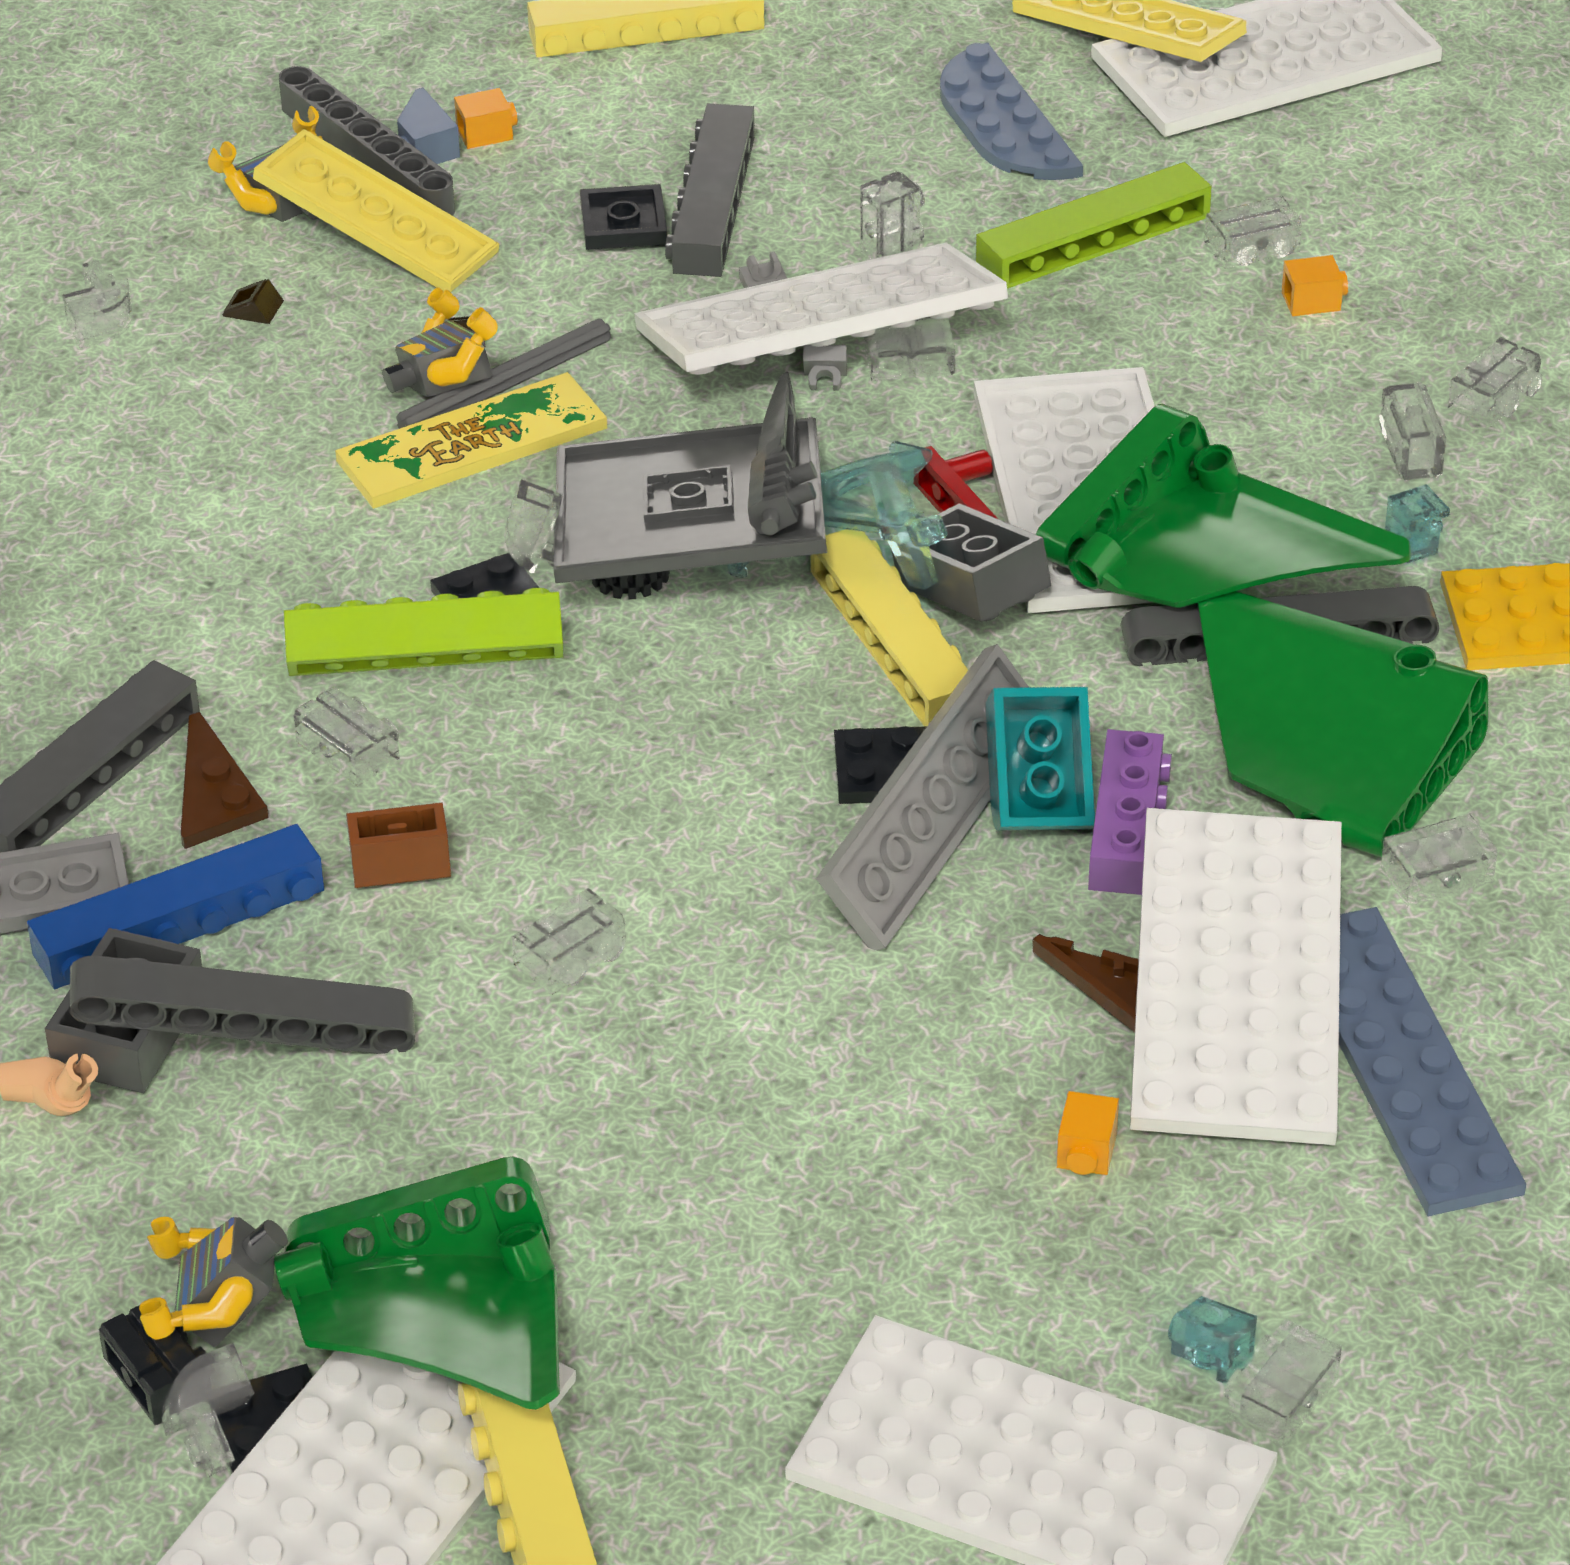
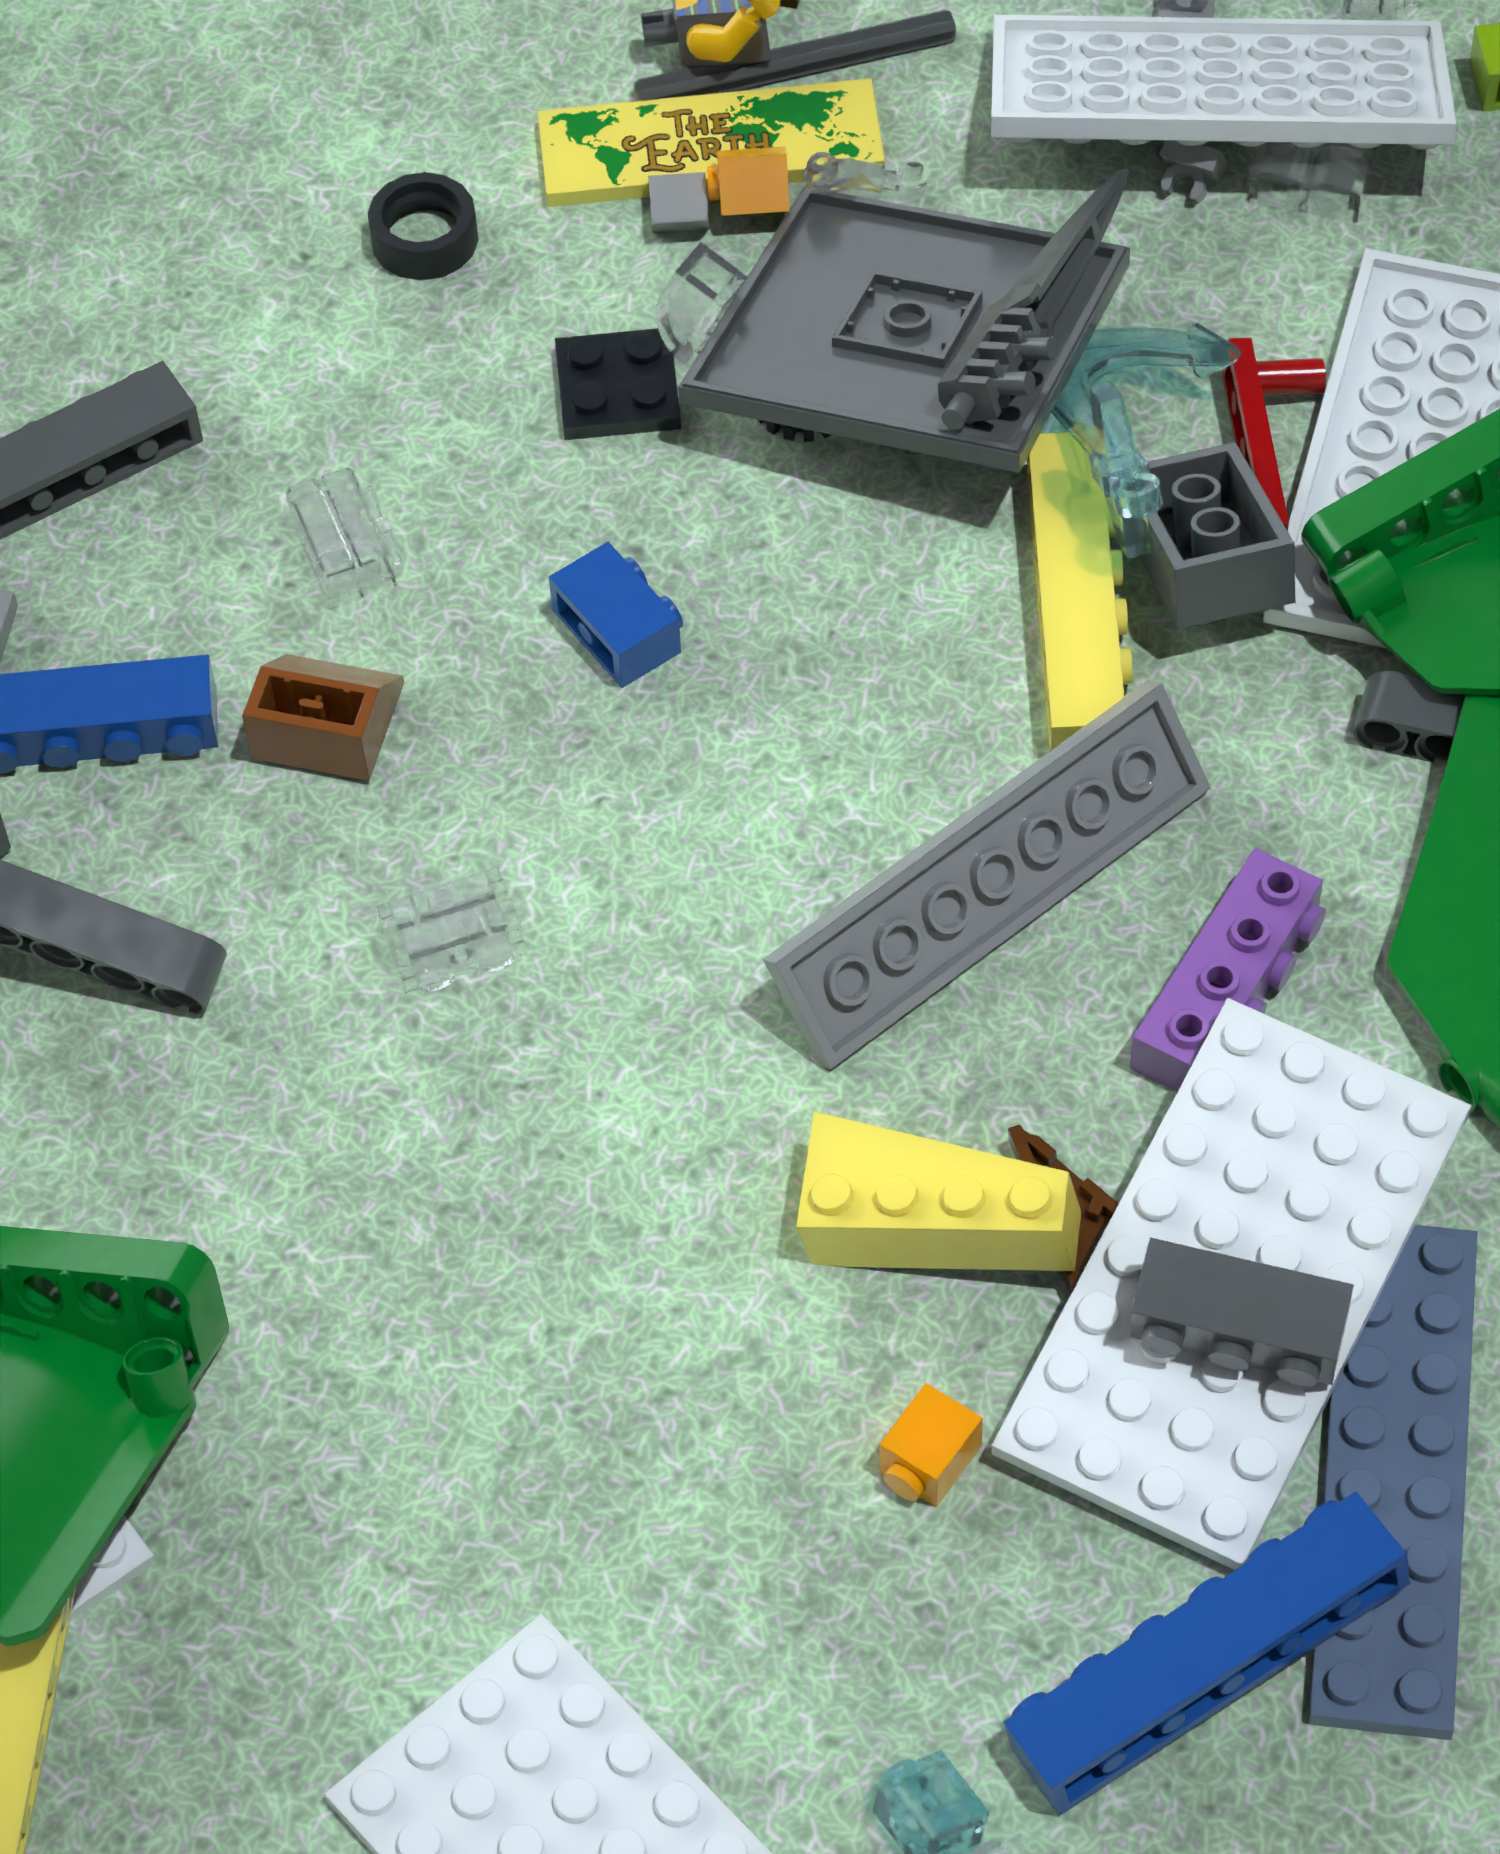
camera: 25 degrees right, 15 degrees up
(215, 789) = (162, 563): reddish brown wing -> none
(298, 558) = (425, 258): none -> black tyre
(423, 632) = (500, 420): lime brick -> none
(473, 478) = (678, 202): none -> light grey slope
(521, 448) = (750, 181): none -> light orange brick
(575, 726) = (616, 613): none -> blue brick
(576, 430) = (831, 175): none -> clear arm
(869, 758) = (950, 777): black plate -> none
(1011, 990) = (930, 1204): none -> light yellow wedge
(1040, 758) = (1141, 871): teal brick -> none
(1262, 974) = (1240, 1312): none -> dark grey brick
(1344, 1184) = (1206, 1651): none -> blue brick

